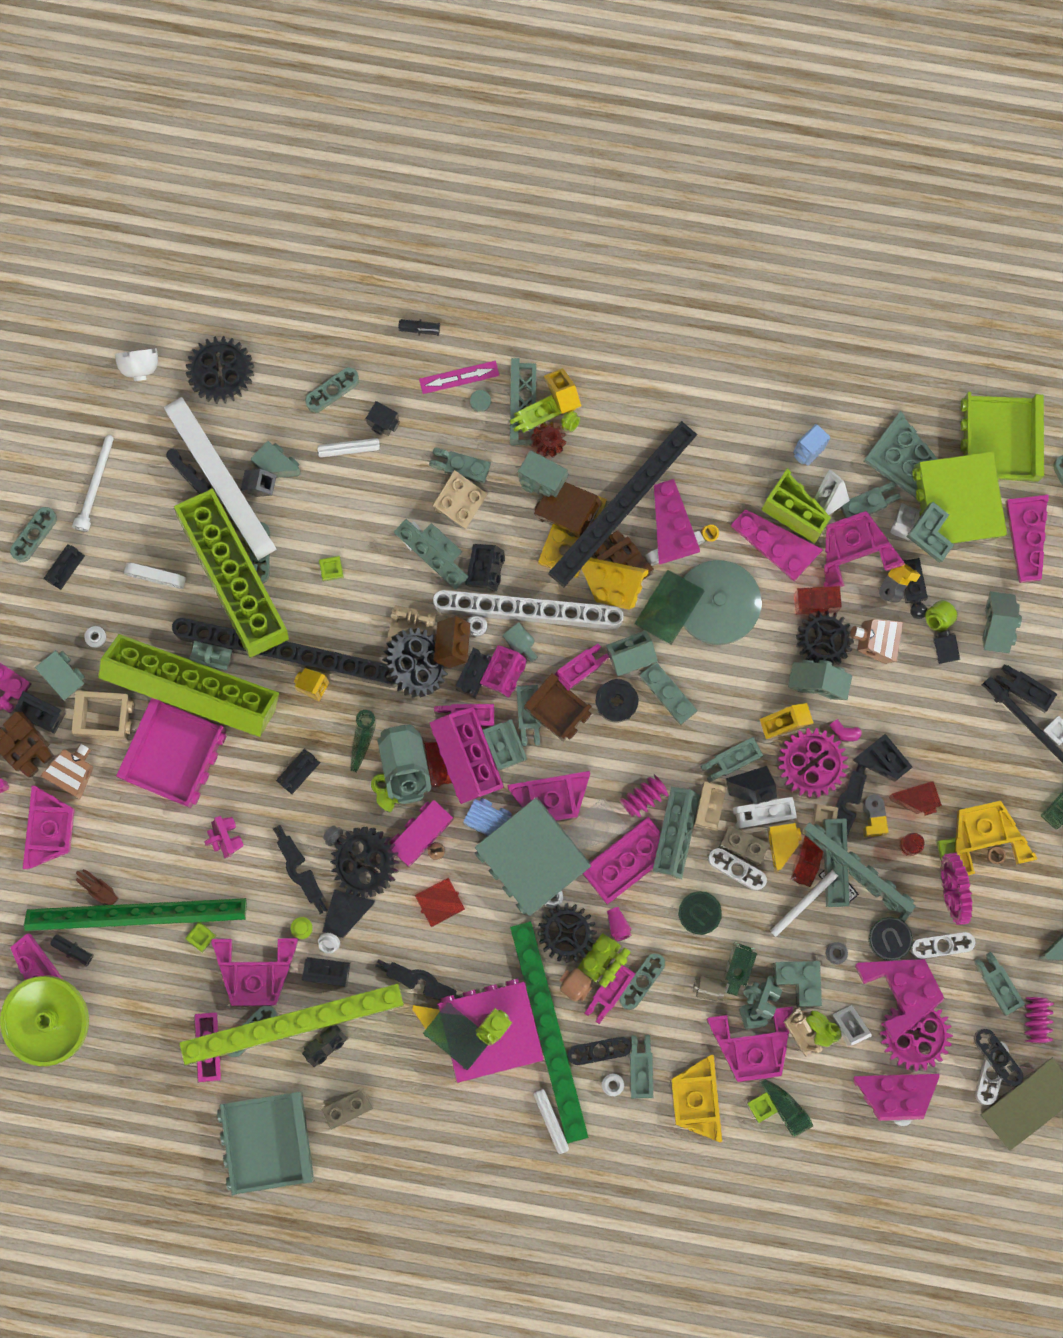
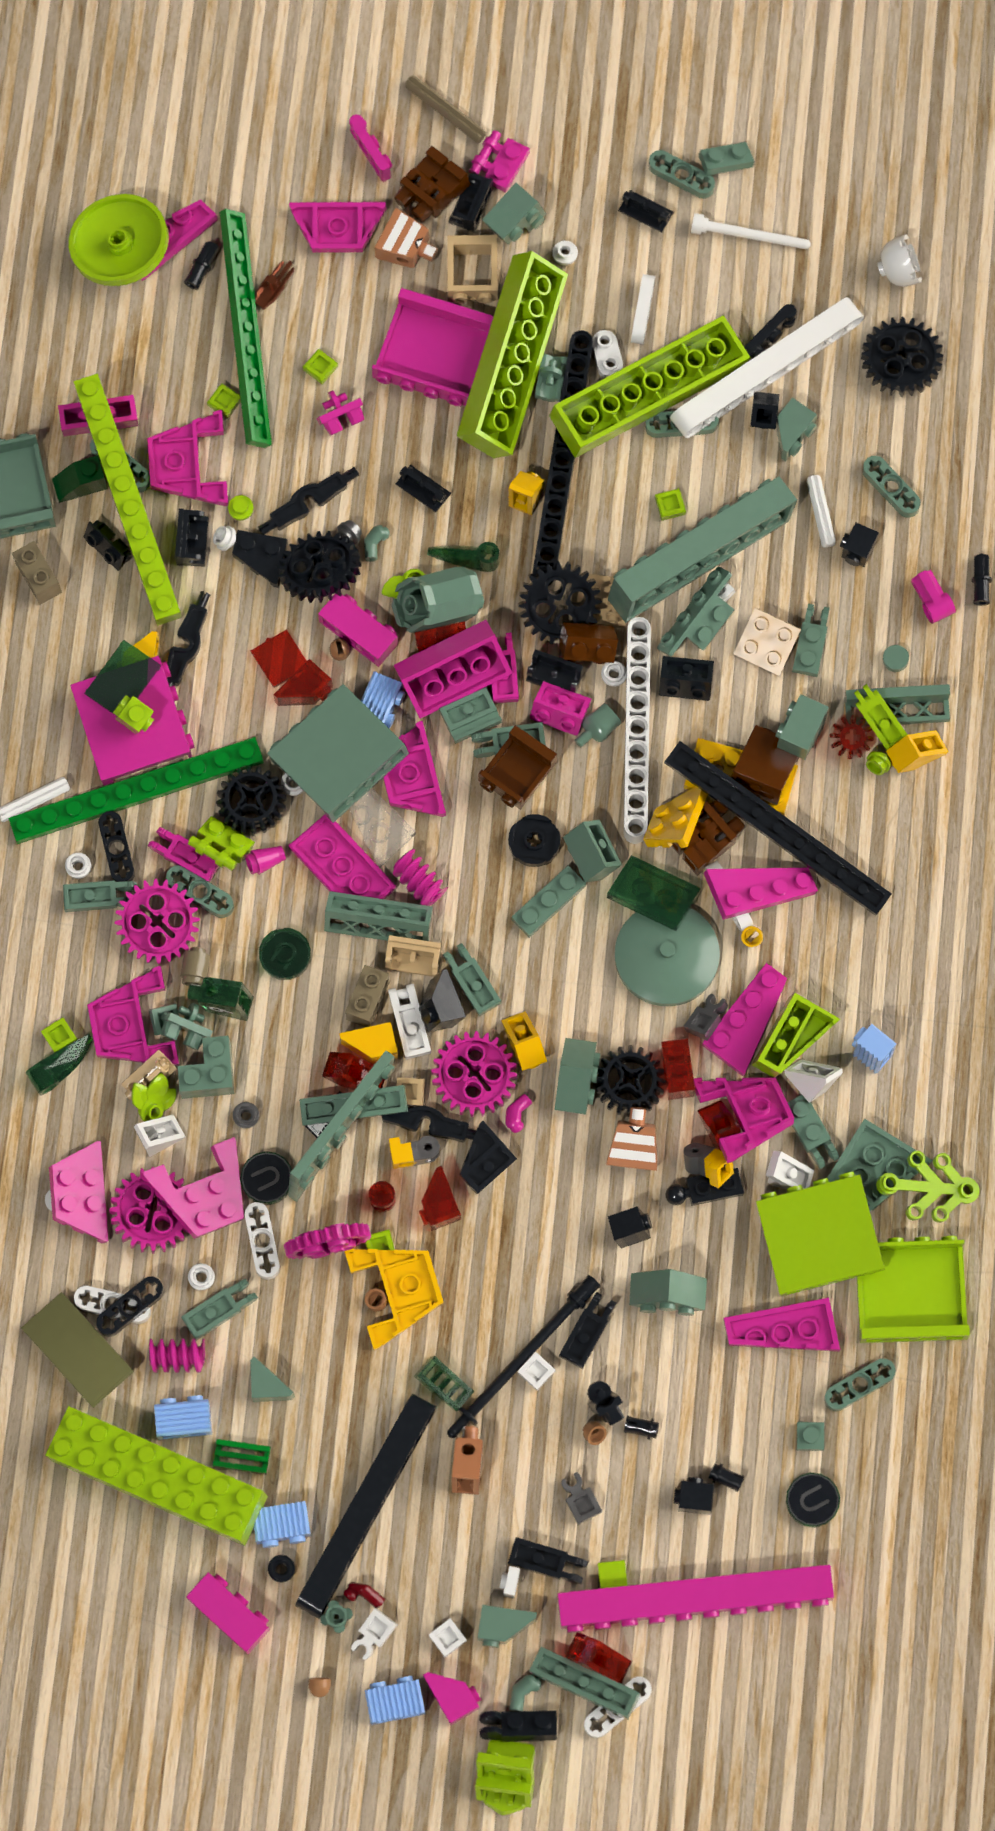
camera: 90 degrees right, 5 degrees down
(24, 496) = (726, 158): none -> sand green plate
(177, 852) = (320, 366): none -> lime tile
(192, 608) = (606, 353): none -> white plate
(263, 1068) = (79, 479): none -> dark green slope
(340, 816) = (372, 539): none -> sand green arm
(380, 542) = (701, 548): none -> sand green brick
(437, 363) = (935, 602): none -> dark pink piece
(459, 377) = (924, 634): dark pink sticker -> none
(469, 880) = (304, 687): none -> clear red slope
(575, 985) = (190, 813): nougat head -> none
(580, 667) = (569, 791): dark pink hinge -> none
(655, 1003) = (173, 903): none -> dark pink gear
(697, 1099) = (64, 961): yellow wing -> none
(748, 883) = (336, 1013): white beam -> none
(777, 576) = (705, 1020): none -> flat silver plate
(796, 910) = (302, 1070): white bar -> none
(864, 571) = (718, 1122): none -> clear red slope
(923, 412) = (932, 1187): none -> lime plant
(926, 533) = (769, 1184): sand green plate -> none
(941, 616) = (670, 1219): lime head -> none
(977, 997) = (197, 1269): none -> white plate

